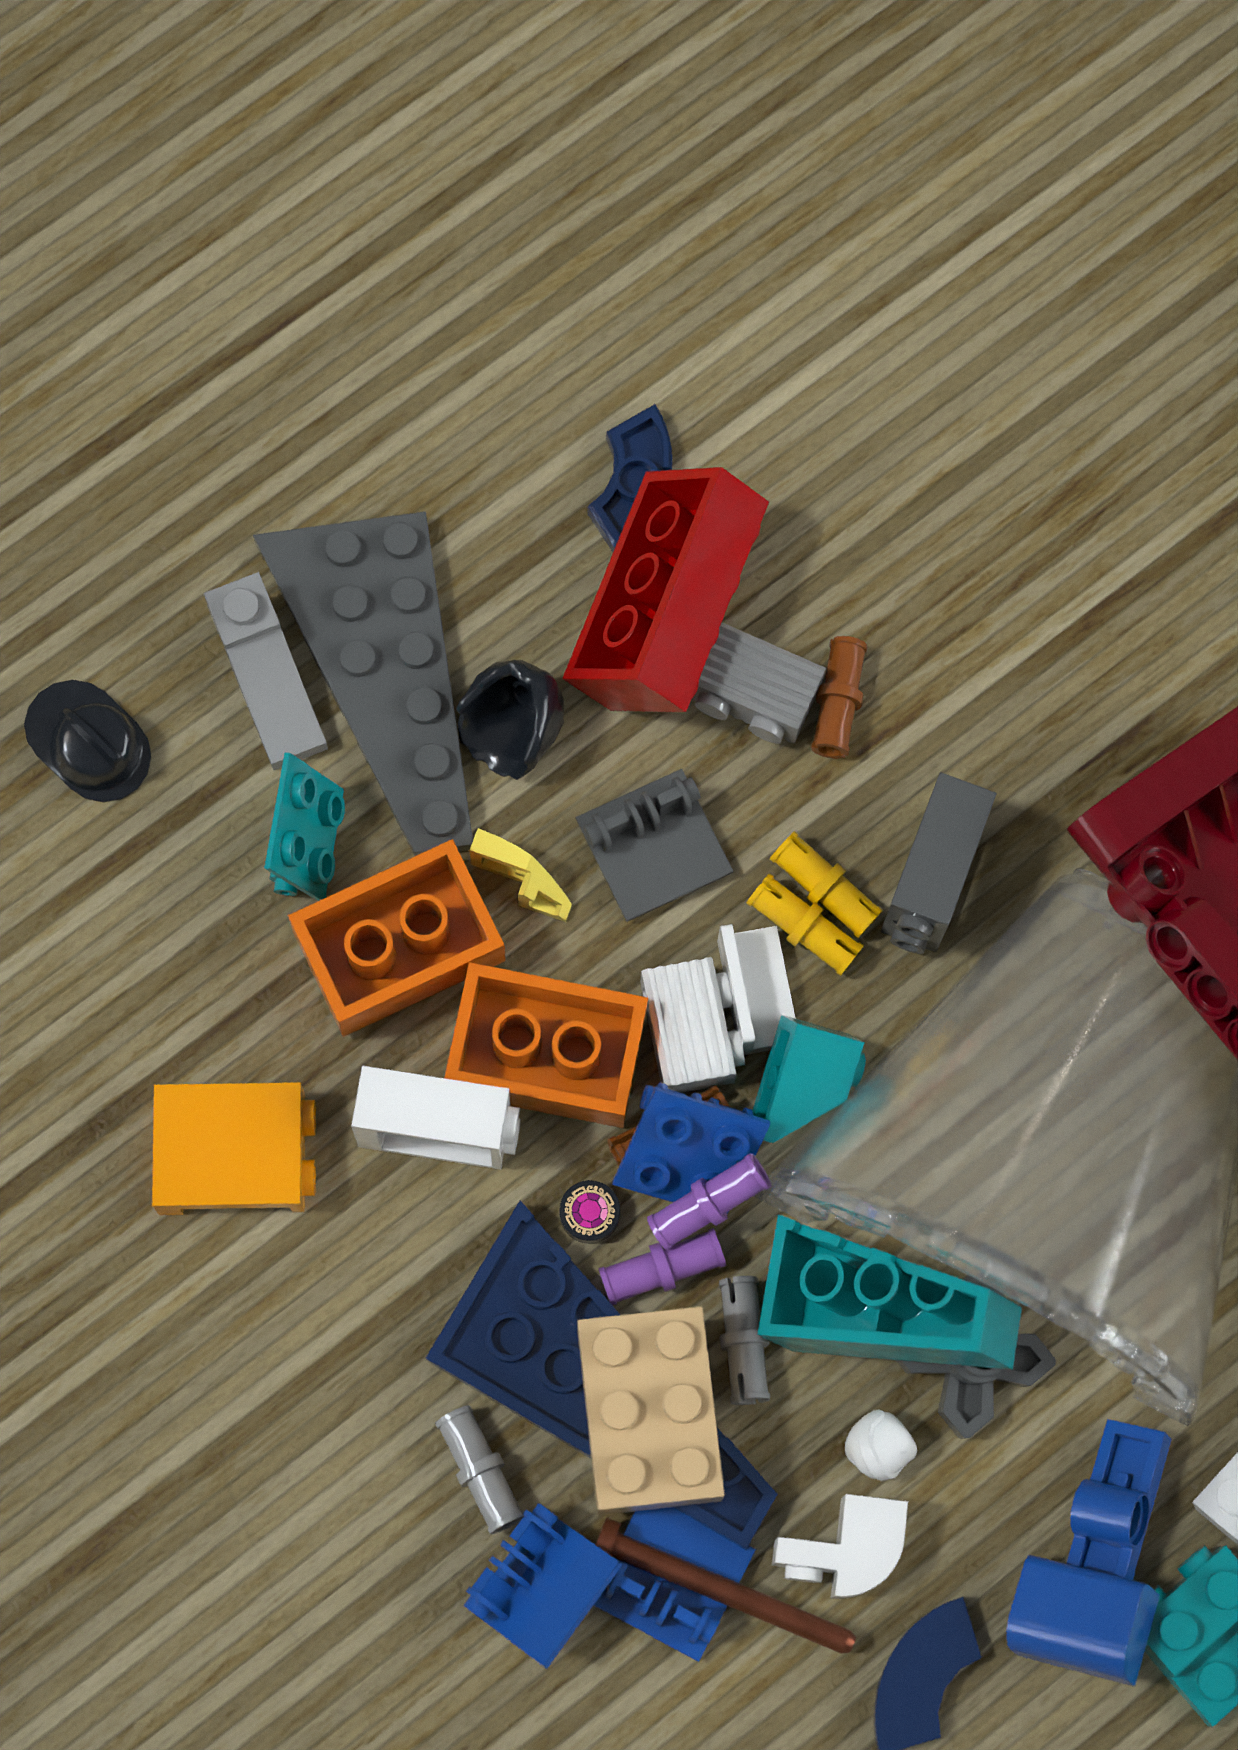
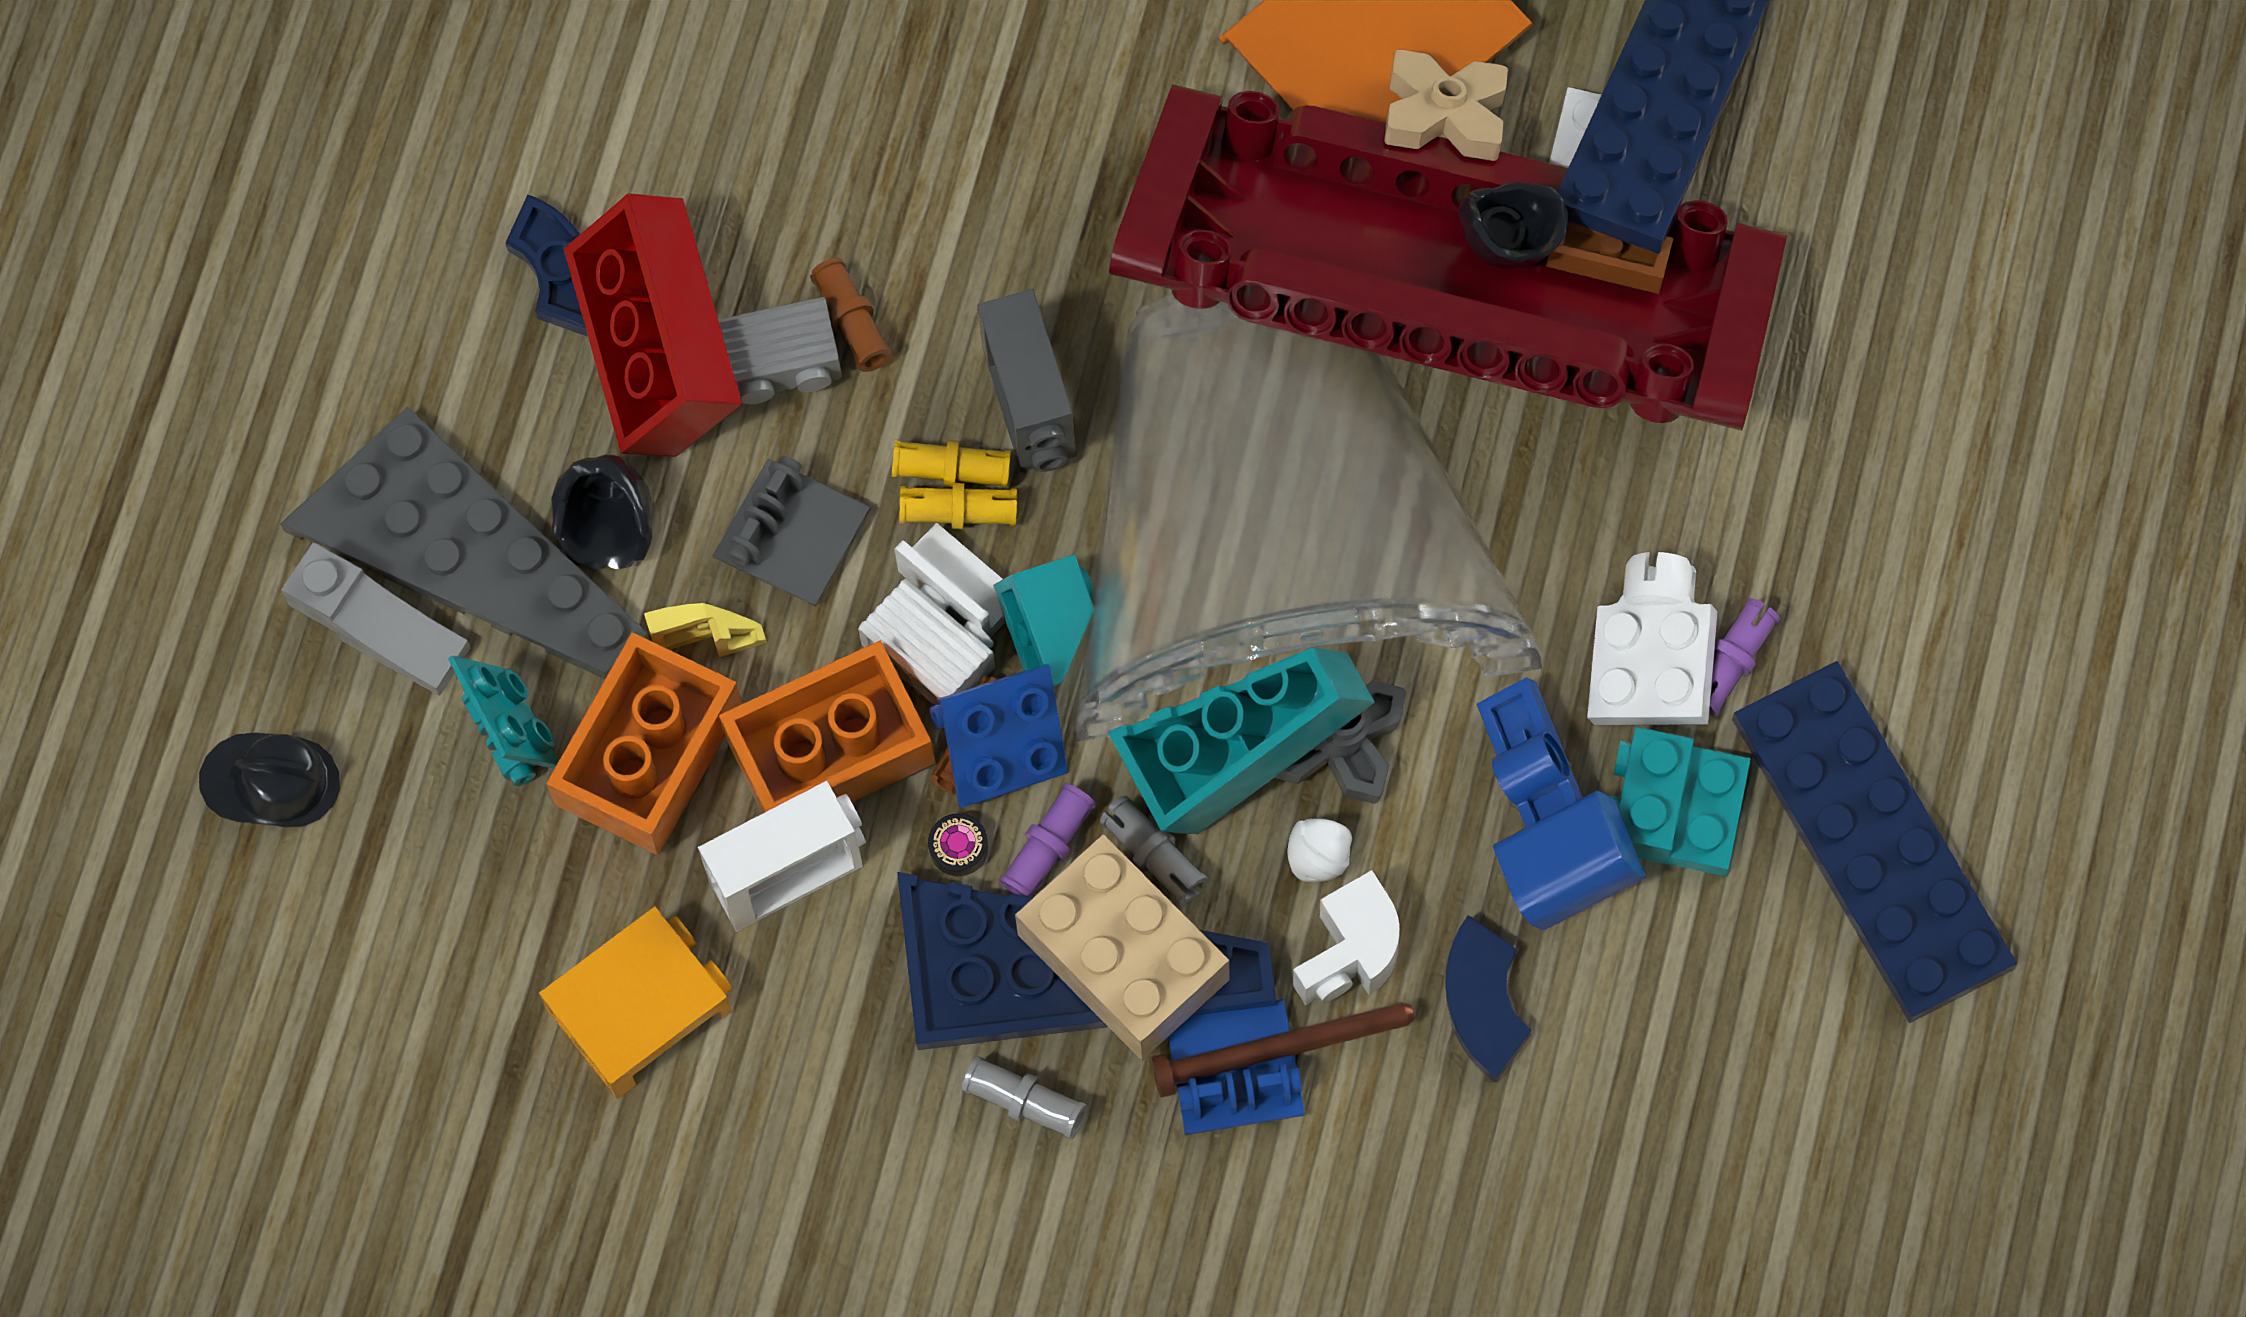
camera: 30 degrees left, 5 degrees down
(542, 1585) = (1139, 1142): blue hinge -> none
(709, 1201) = (1046, 761): medium lavender pin -> none

